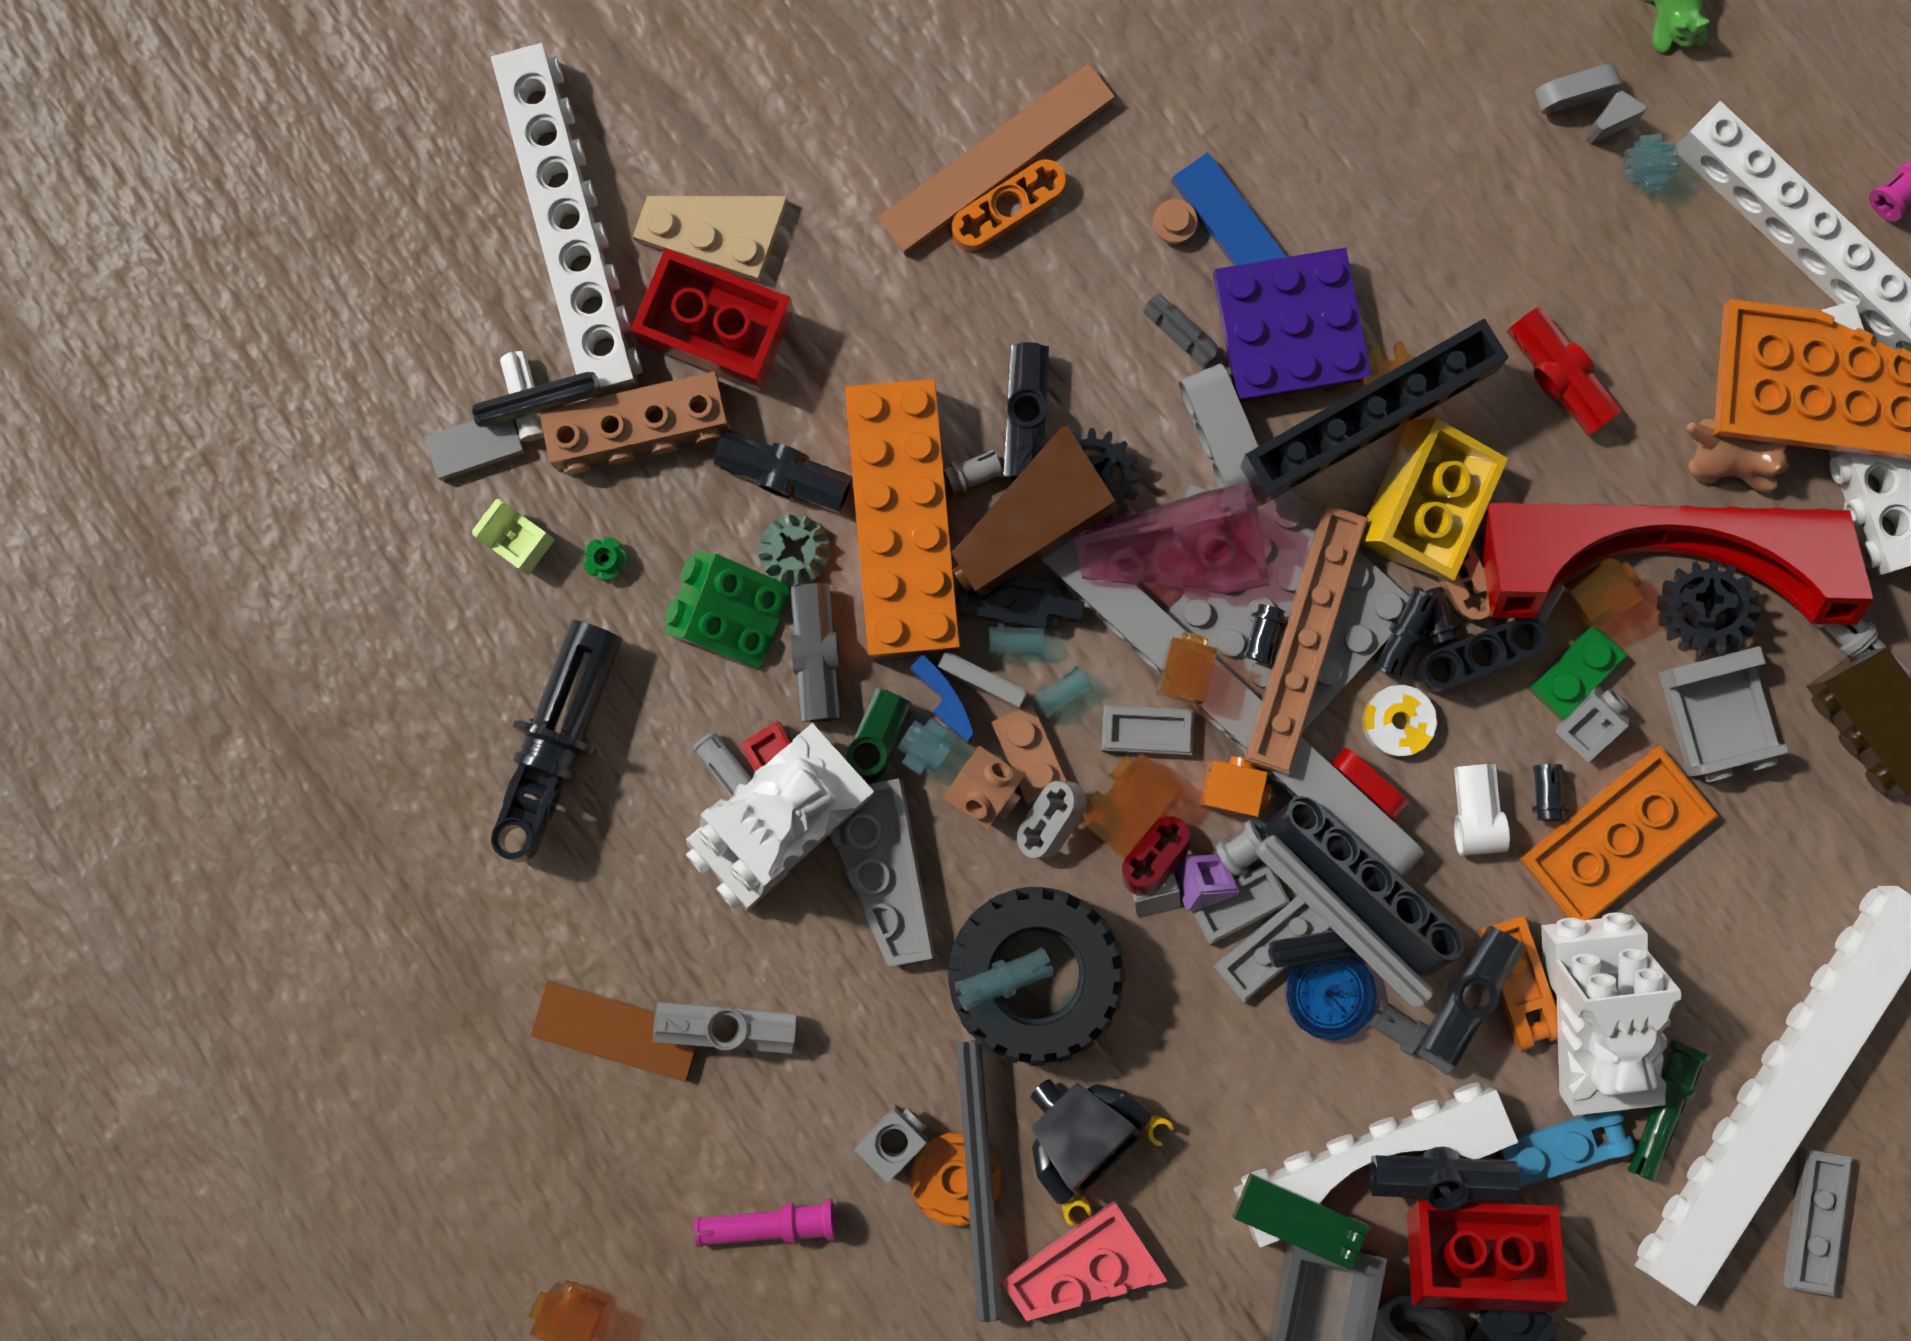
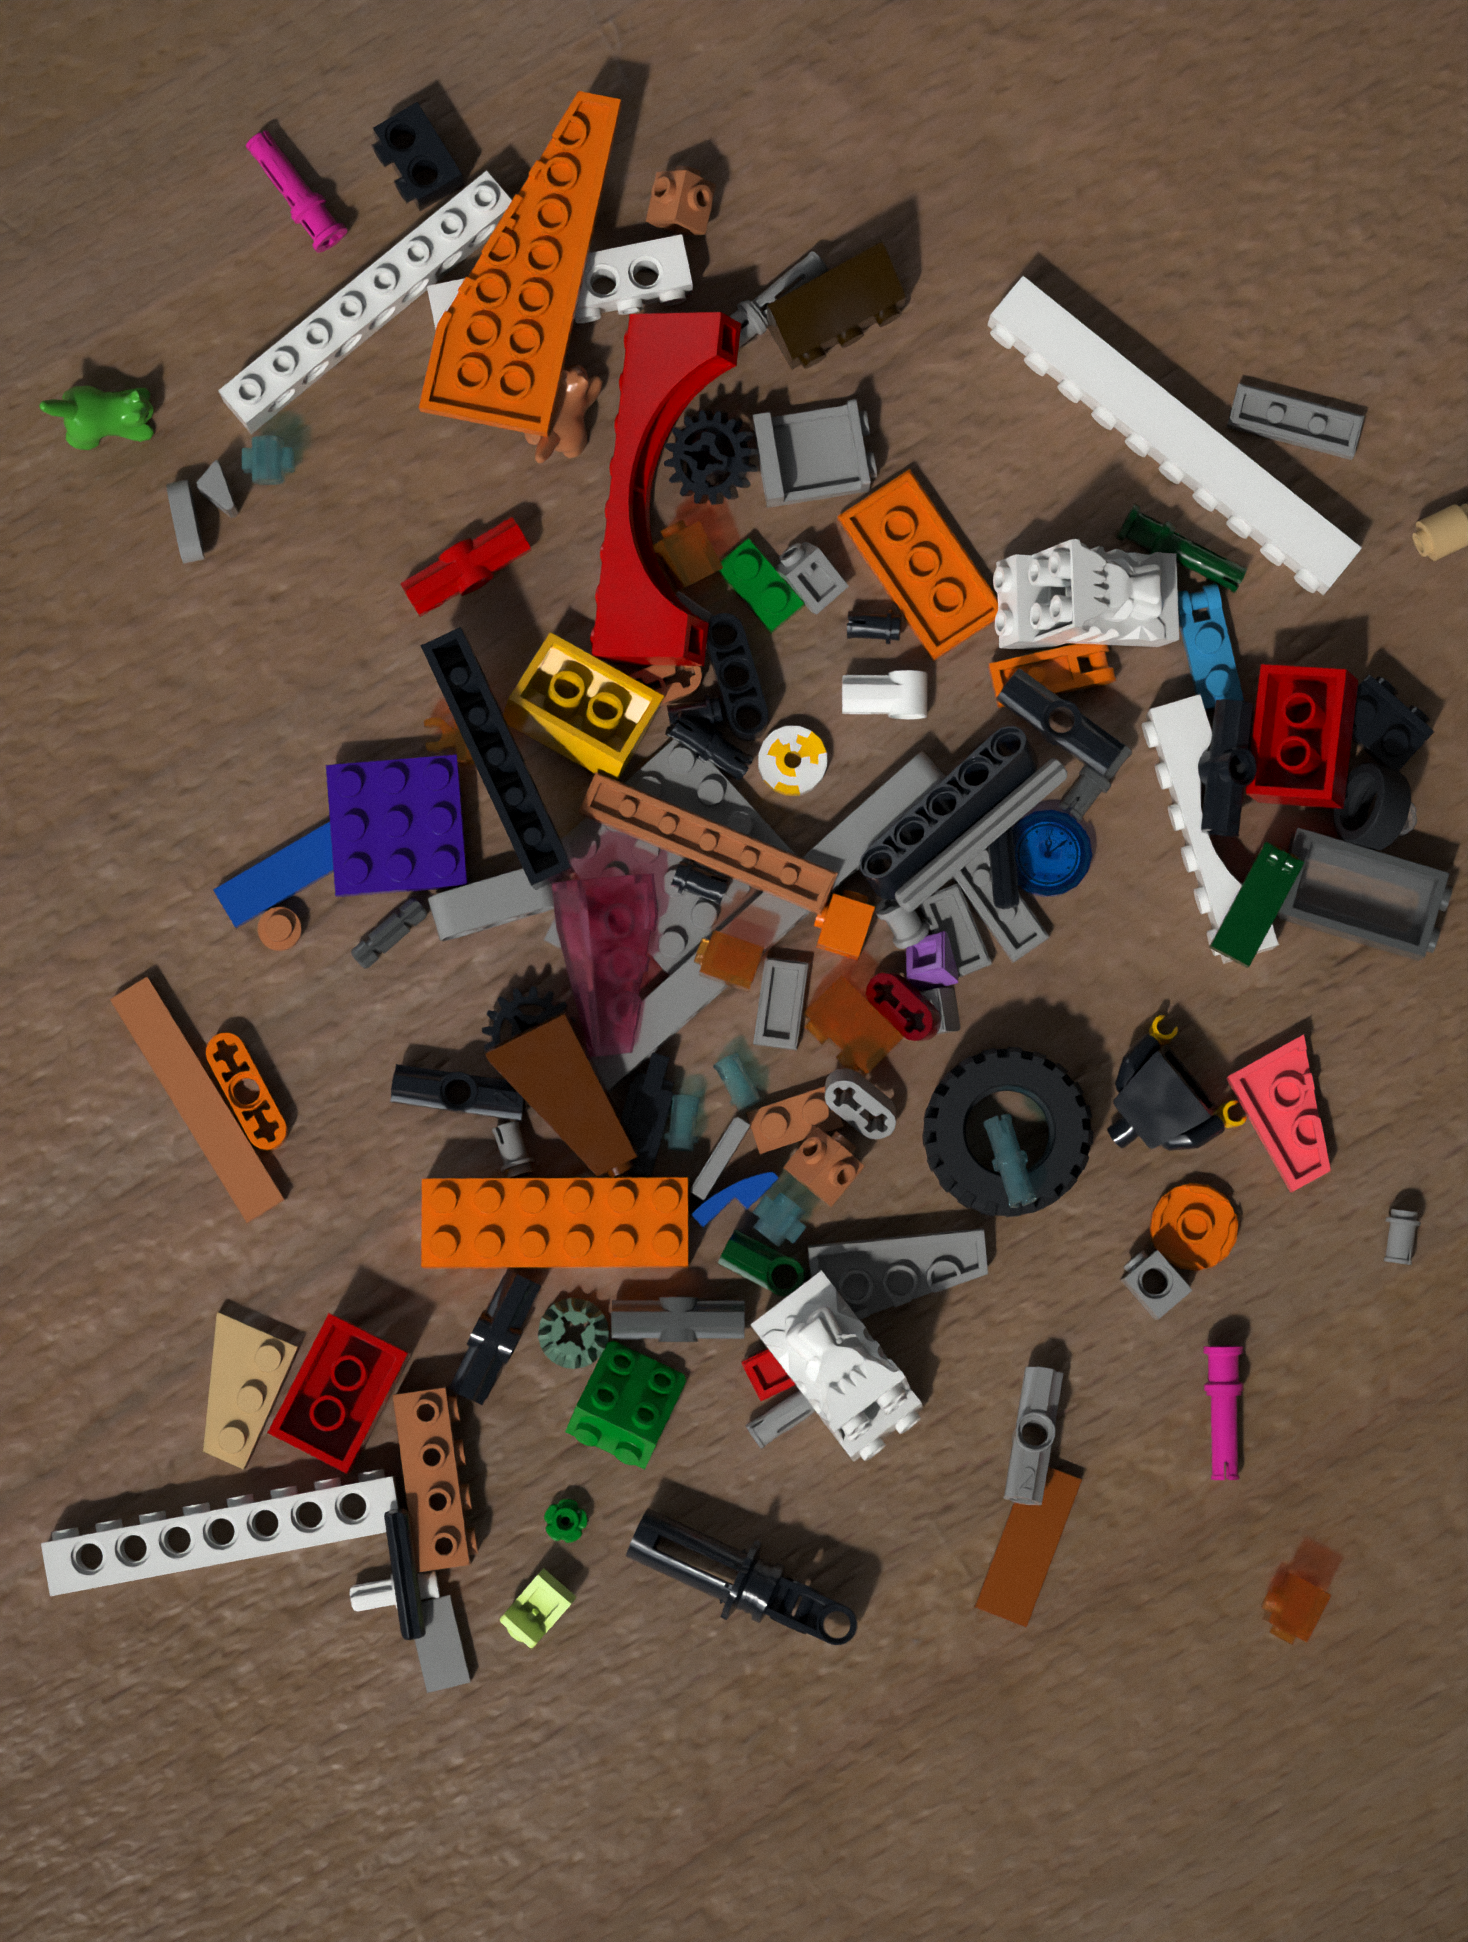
camera: 90 degrees left, 0 degrees up
(979, 1181) = (1196, 1203): dark grey axle -> none
(1370, 783) = (852, 796): red beam -> none

